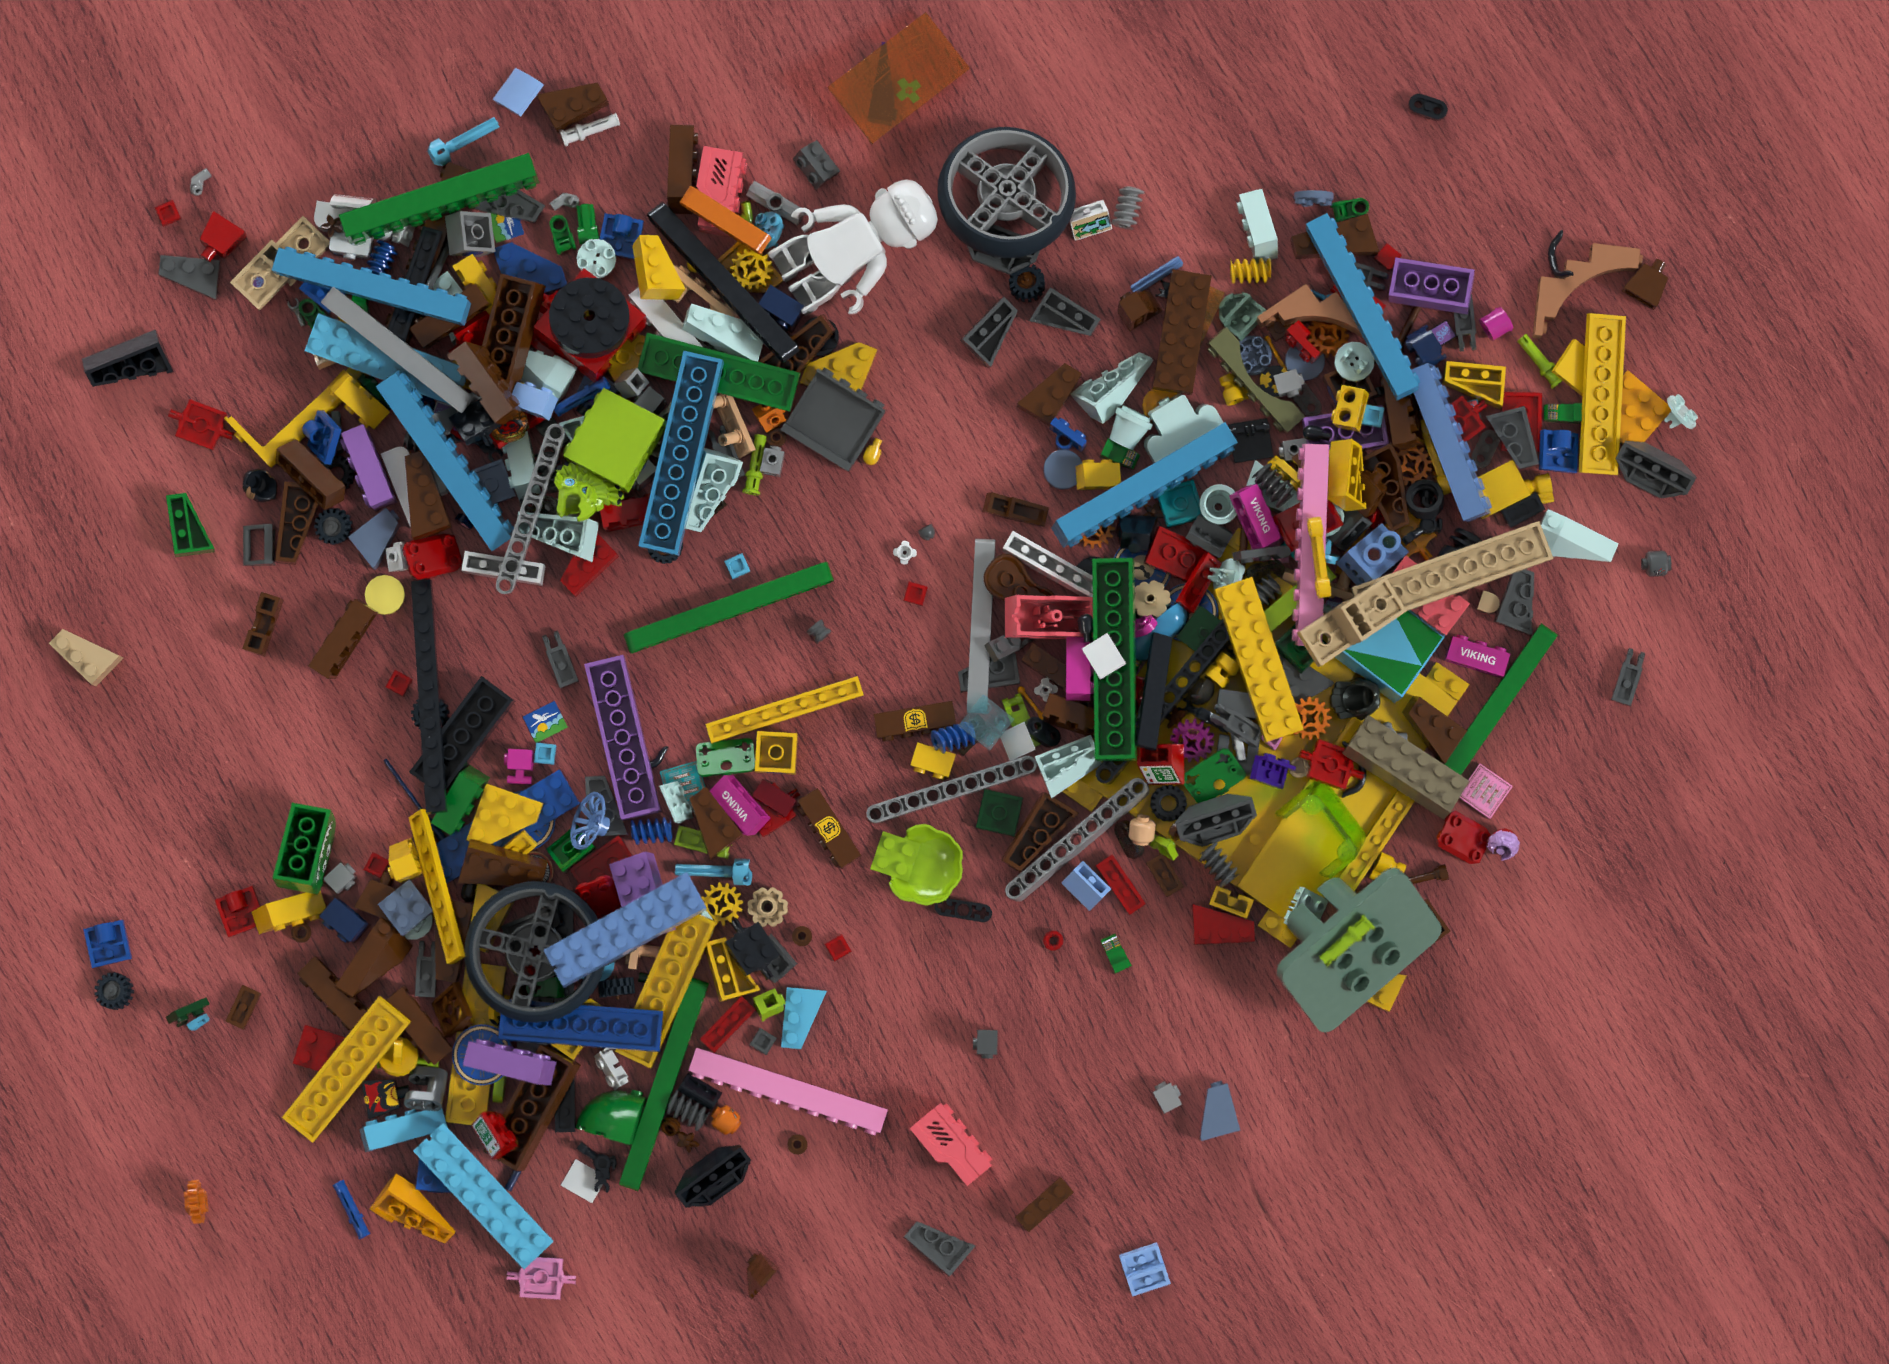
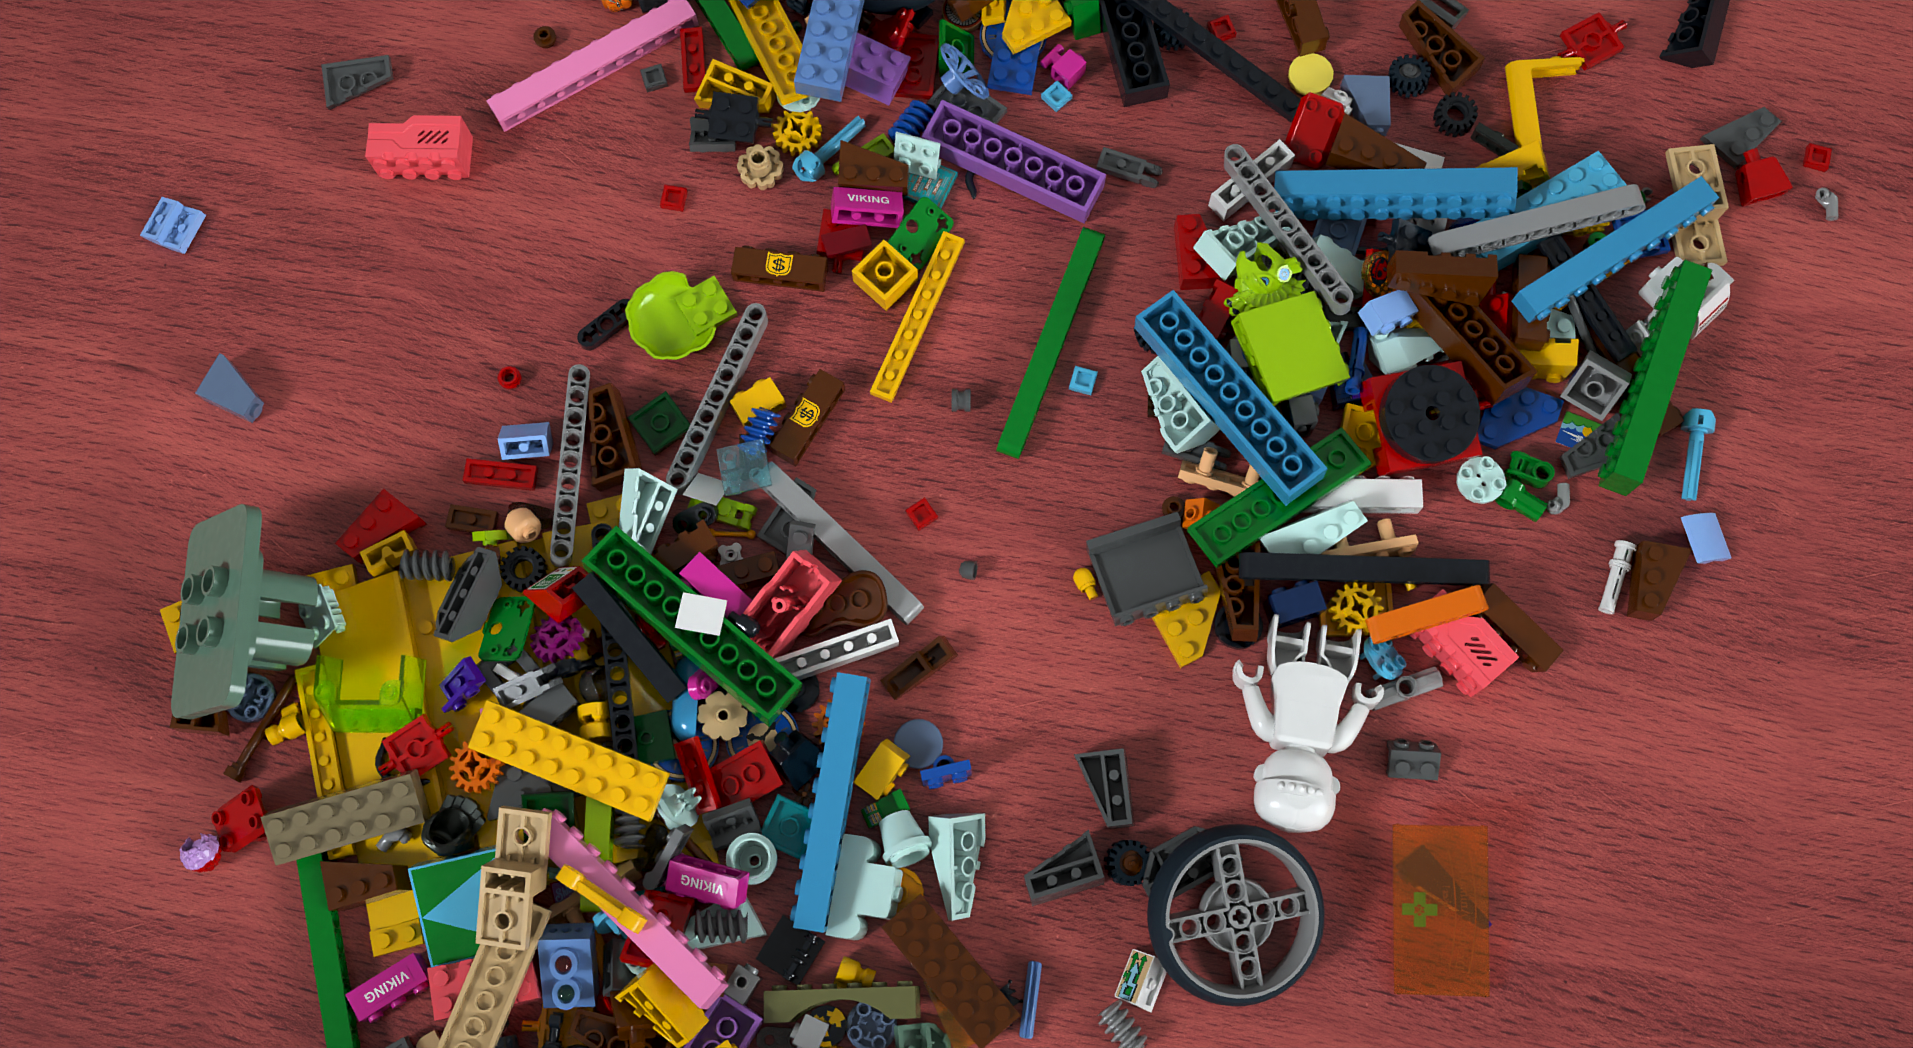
camera: 130 degrees right, 10 degrees down
(259, 485) = (1497, 43): black hair -> none
(310, 474) = (1473, 81): reddish brown brick -> none
(322, 436) = (1505, 120): blue plate -> none
(367, 464) = (1450, 137): medium lavender brick -> none
(381, 258) = (1627, 293): blue piece -> none
(545, 722) = (1084, 118): sticker -> none
(621, 233) = (1484, 524): blue plate -> none
(631, 383) = (1334, 411): light grey brick -> none
(655, 270) = (1426, 519): yellow wedge -> none
(746, 211) = (1411, 651): lime arm -> none
(754, 474) = (1152, 461): lime pin -> none
(763, 1000) = (680, 95): lime brick -> none
(772, 461) = (1153, 485): light grey brick -> none
(799, 1015) = (648, 123): medium azure wing -> none
(806, 941) = (710, 181): reddish brown plate -> none
(904, 547) = (972, 540): white plate -> none
(986, 1043) = (474, 244): dark grey brick -> none
(1044, 1204) = (302, 169): reddish brown arch -> none
(1051, 395) = (998, 791): reddish brown wedge -> none
(1115, 953) = (445, 419): green leg -> none
(1137, 308) = (1011, 950): reddish brown wedge -> none
(1167, 1096) = (286, 359): light grey brick -> none
(1286, 471) = (726, 954): yellow hinge -> none
(1301, 767) = (440, 718): tan tile -> none
(1315, 434) = (734, 1014): black cylinder -> none
(1354, 934) = (217, 605): lime pin -> none
(1485, 791) = (266, 884): bright pink tile -> none

